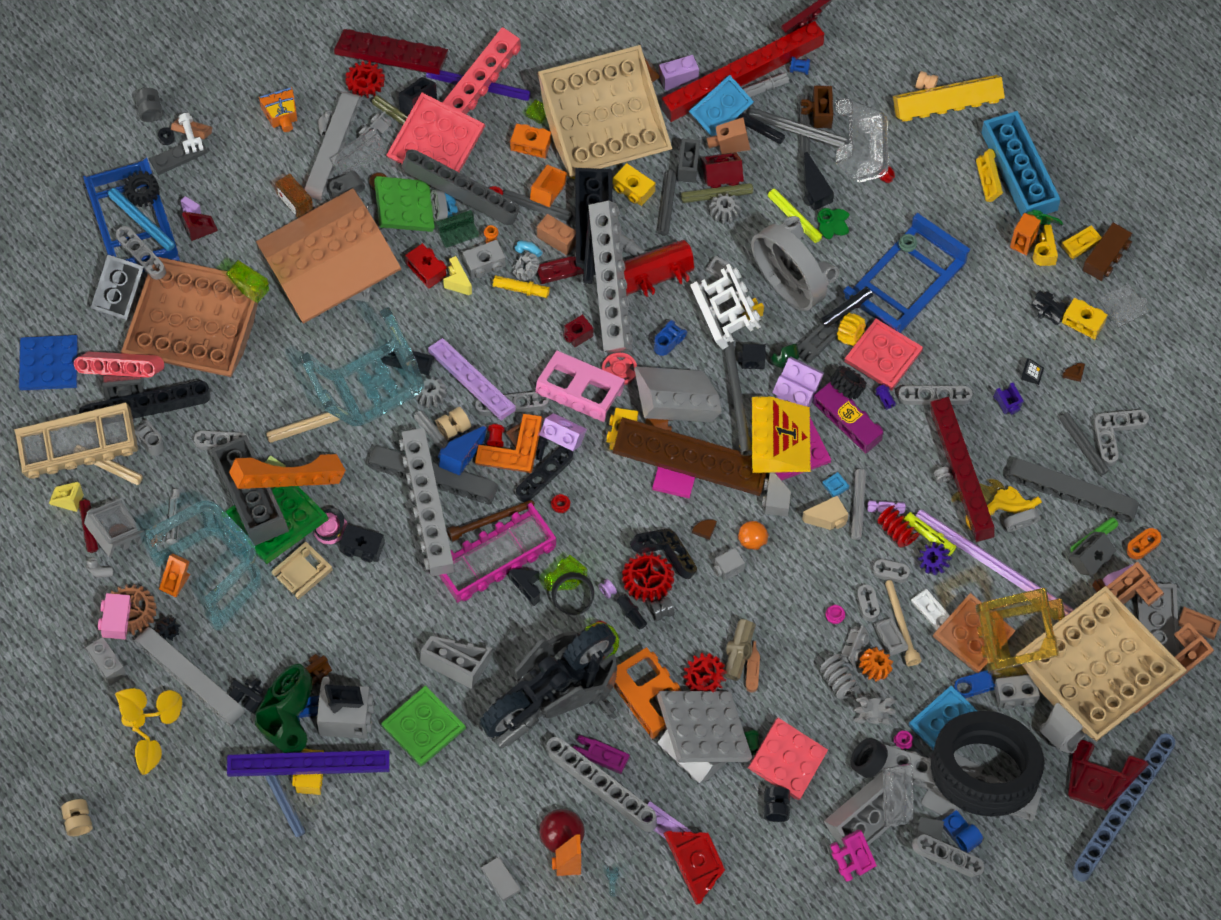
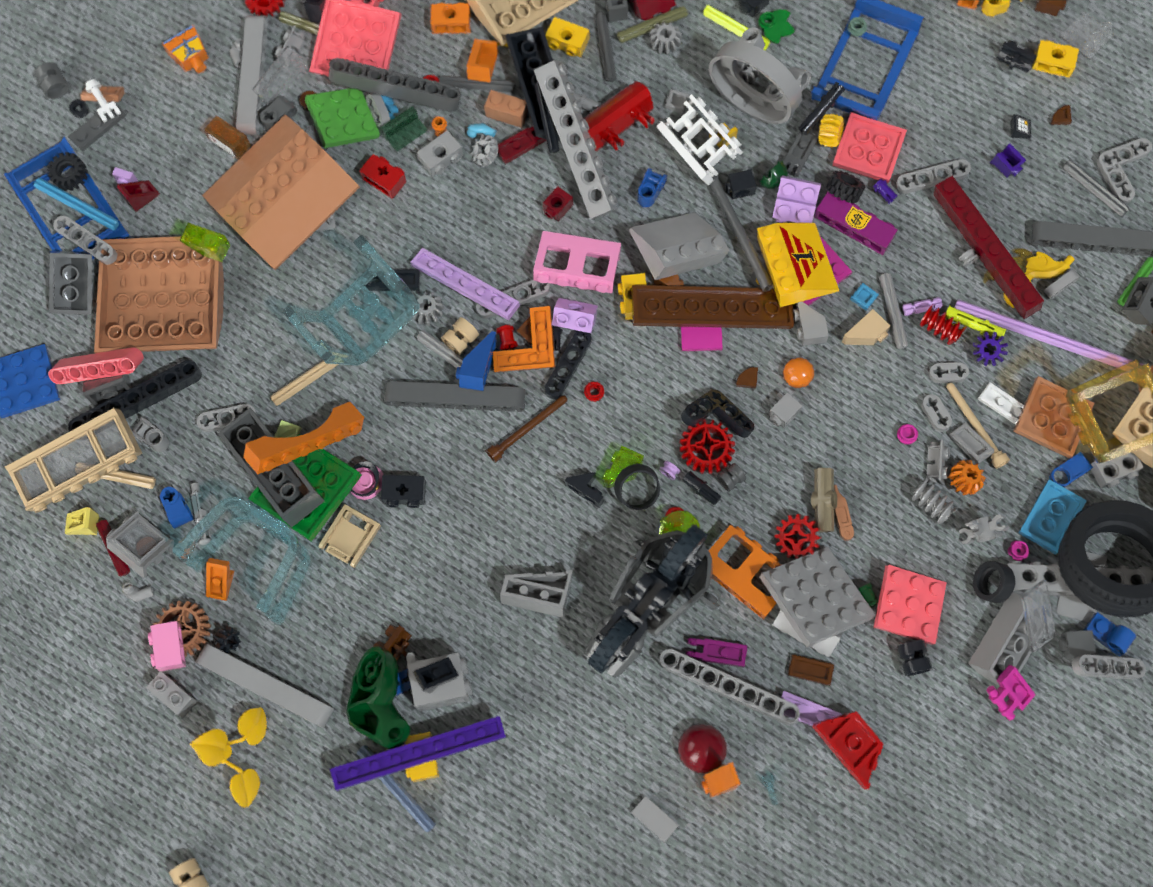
camera: 10 degrees left, 10 degrees up
(154, 507) = (176, 510): none -> blue piece
(240, 690) = (321, 688): black hips -> none
(423, 726) = (524, 672): bright green plate -> none
(443, 562) = (427, 366): light grey brick -> none
(458, 280) = (420, 183): light yellow slope -> none
(498, 553) = (544, 464): window -> none
(519, 286) = (491, 172): yellow pin -> none
(620, 367) = (611, 231): coral wheel -> none
(681, 792) = (811, 670): none -> reddish brown tile

